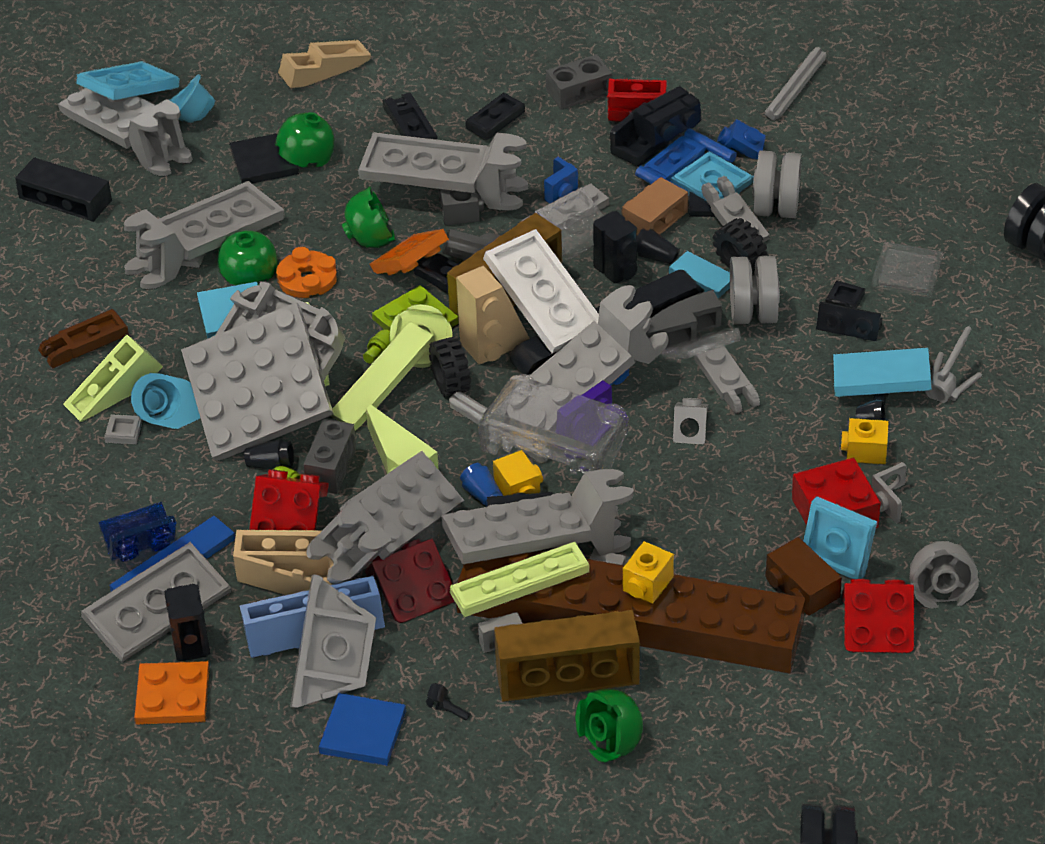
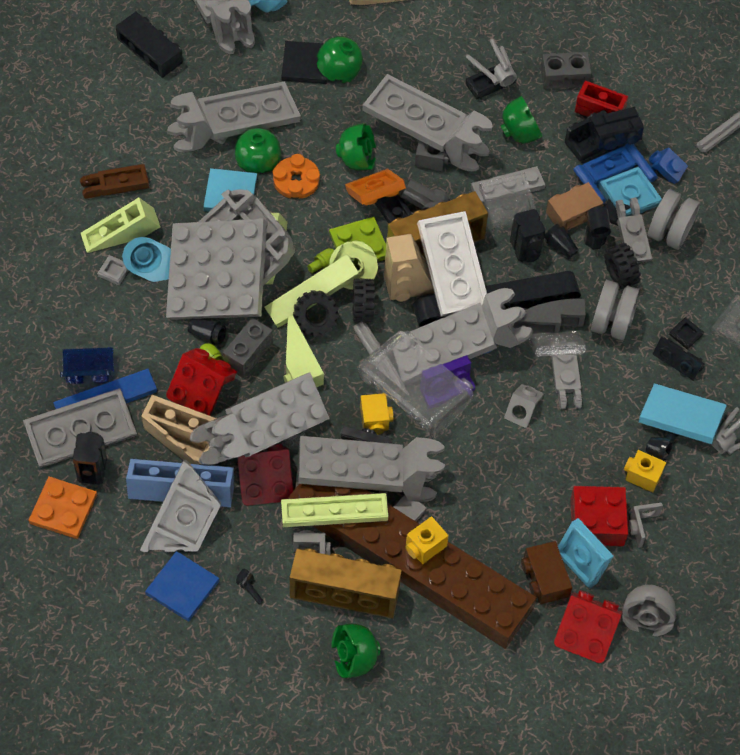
camera: 15 degrees right, 15 degrees up
(408, 117) = (425, 65): black plate -> none
(414, 385) = (312, 298): none -> black tyre
(479, 482) = (347, 409): blue cone -> none
(508, 98) = (503, 73): none -> light grey plant
(551, 141) = (520, 122): none -> green cylinder
(562, 181) = (514, 160): blue bracket -> none
(694, 217) = (597, 227): none -> black piece
(703, 272) = (586, 275): medium azure tile -> none

